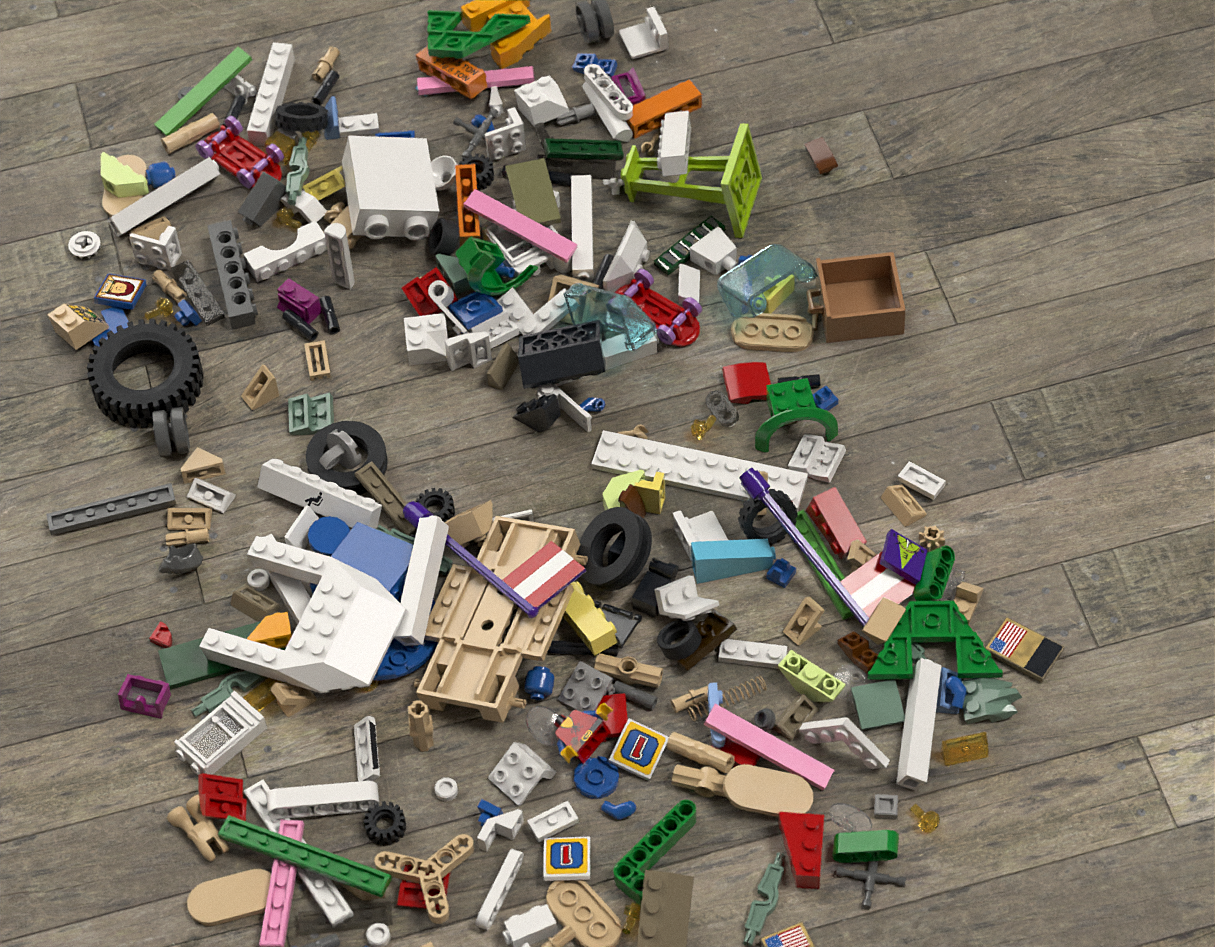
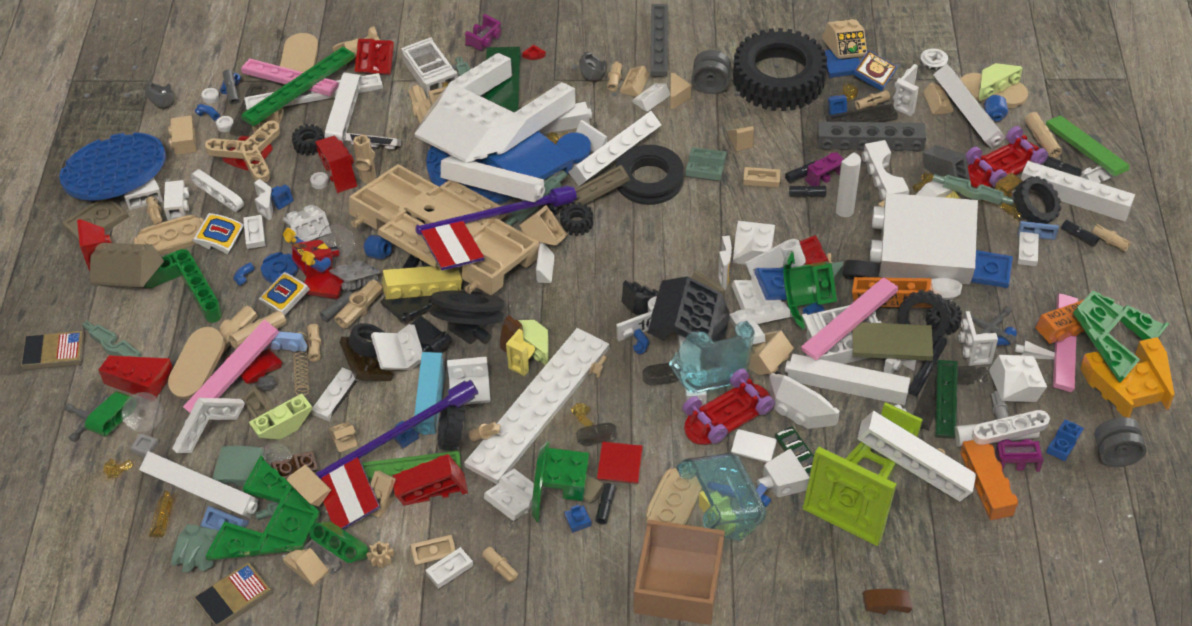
camera: 105 degrees right, 5 degrees down
(273, 631) = (499, 96): light orange slope -> none
(296, 718) = (420, 103): none -> tan piece
(341, 451) = (647, 161): light grey tile -> none
(416, 772) = (338, 162): none -> red wedge
(483, 162) = (930, 298): none -> black tyre
(627, 378) = (661, 374): none -> clear smoke plate
(645, 37) = (1096, 489): white bracket -> none
(900, 444) = (500, 564): none -> tan axle
(903, 556) = (364, 517): dark purple tile -> none
(959, 691) = (212, 521): blue arm -> none

